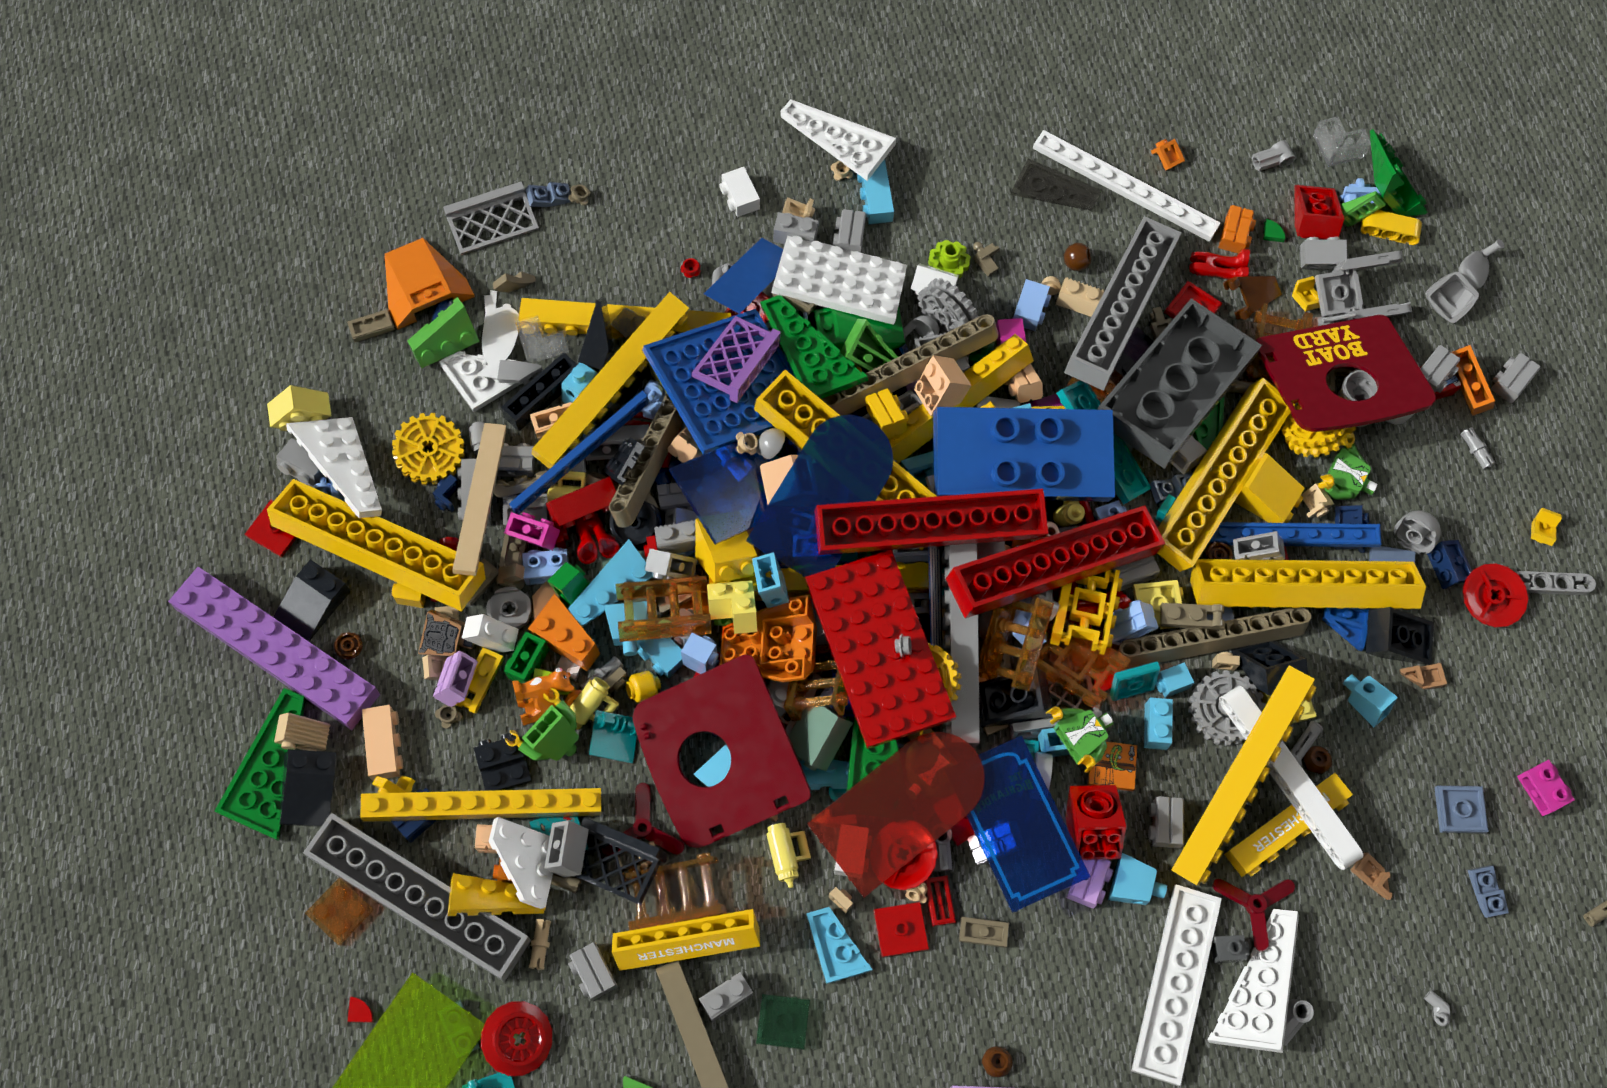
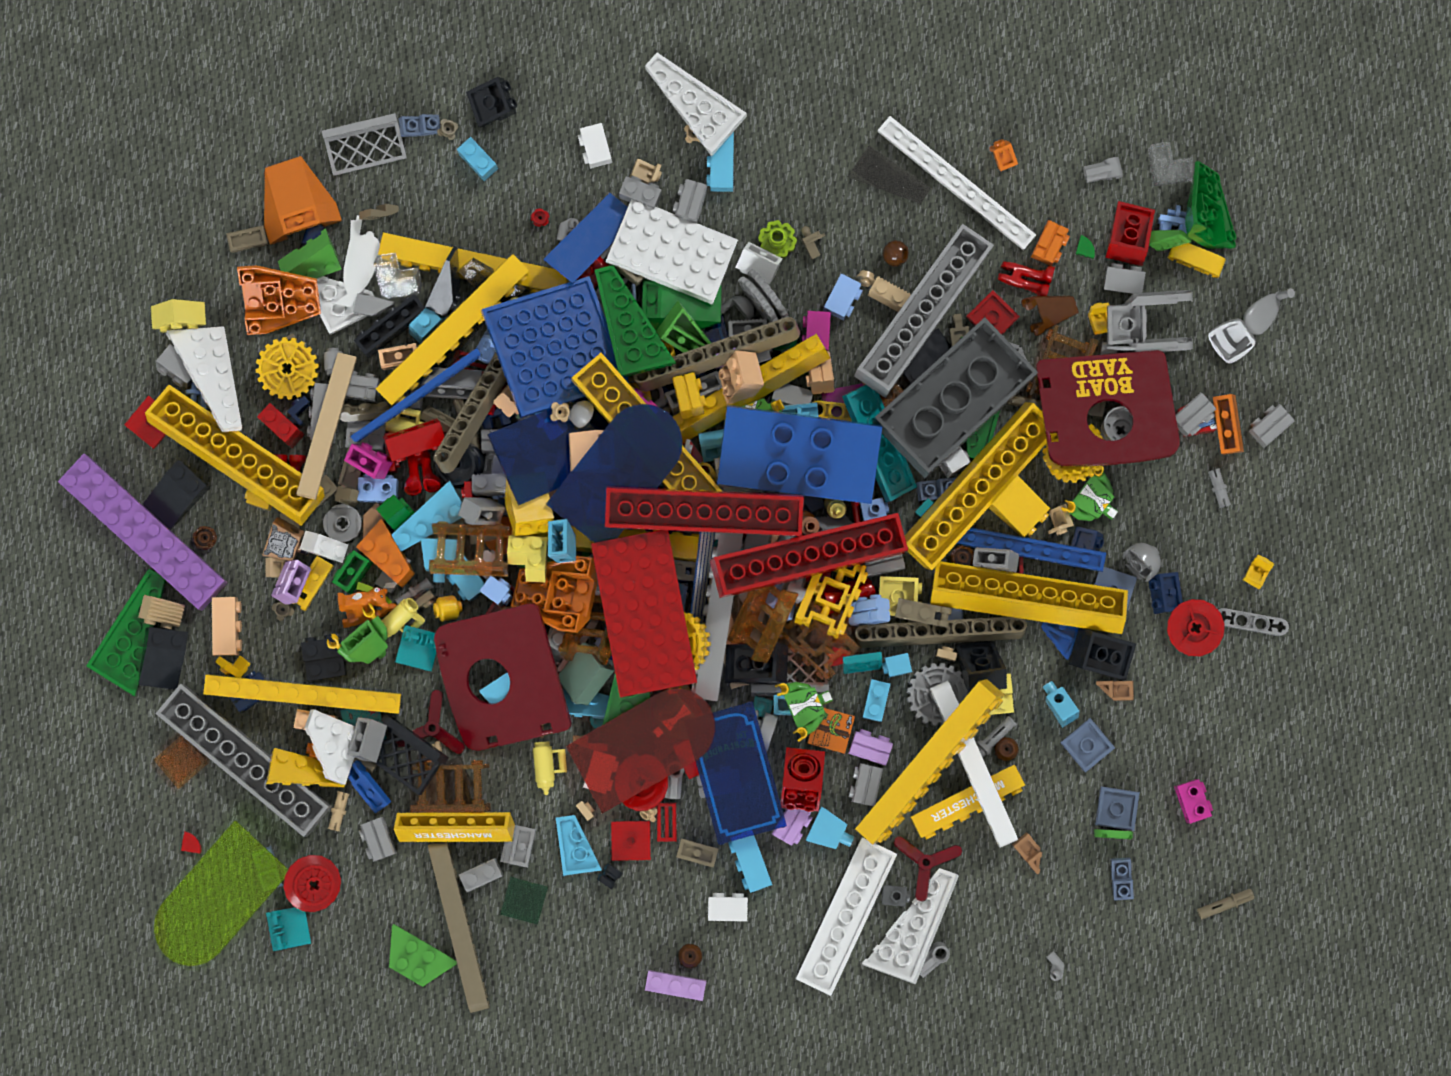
camera: 15 degrees right, 15 degrees up
(409, 374) = (276, 298): none -> orange wedge
(426, 507) = (280, 425): none -> red brick
(573, 909) = (367, 787): none -> blue hinge
(615, 217) = (477, 159): none -> medium azure brick
(623, 162) = (492, 101): none -> black plate
(623, 460) = (453, 408): black wing -> none
(750, 369) = (575, 339): medium lavender fence -> none
(767, 960) = (520, 849): none -> light grey plate
(883, 975) = (612, 872): none -> black wheel
(903, 645) = (662, 617): light grey plate -> none
(1033, 994) = (727, 908): none -> white brick
(1050, 934) = (751, 863): none -> medium azure brick
(1163, 778) = (870, 748): none -> lavender brick
(1408, 742) = (1087, 745): none -> sand blue plate
(1468, 836) = (1113, 834): none -> bright green tile

